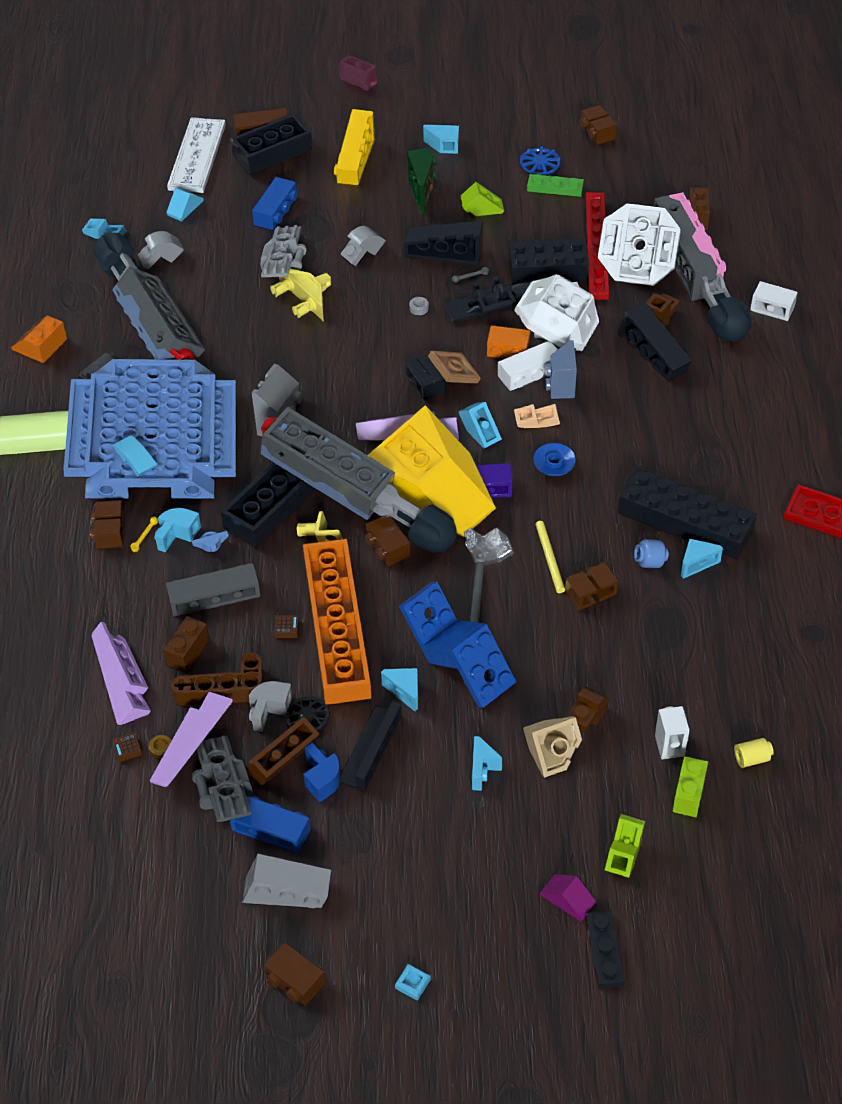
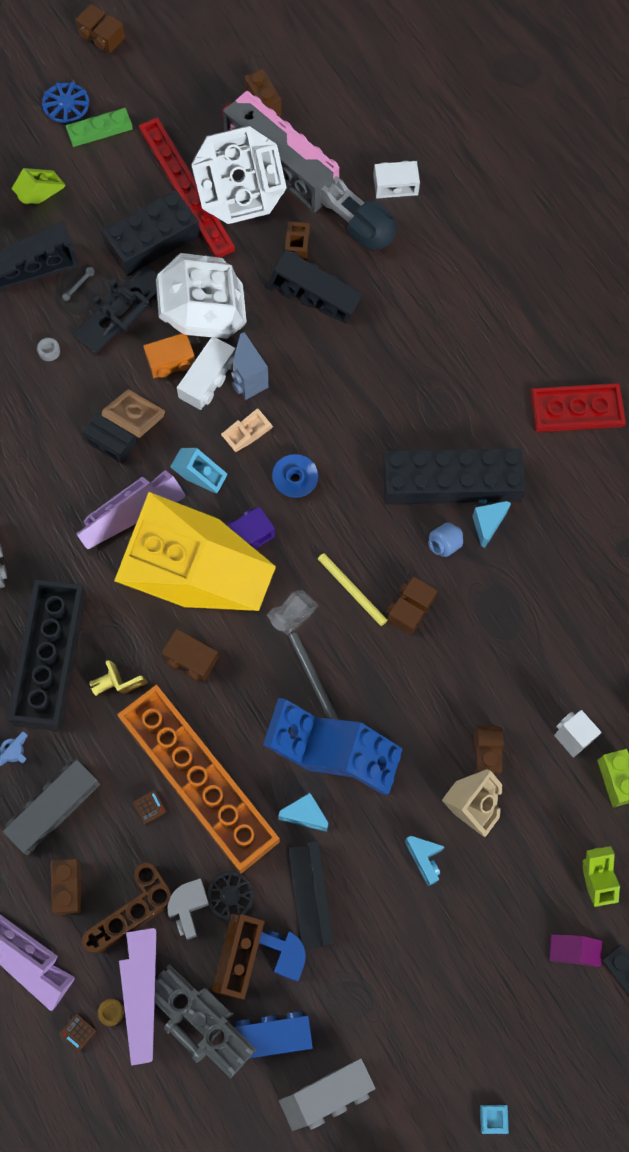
camera: 35 degrees left, 20 degrees up
(350, 477) = (117, 614): dark grey piece -> none

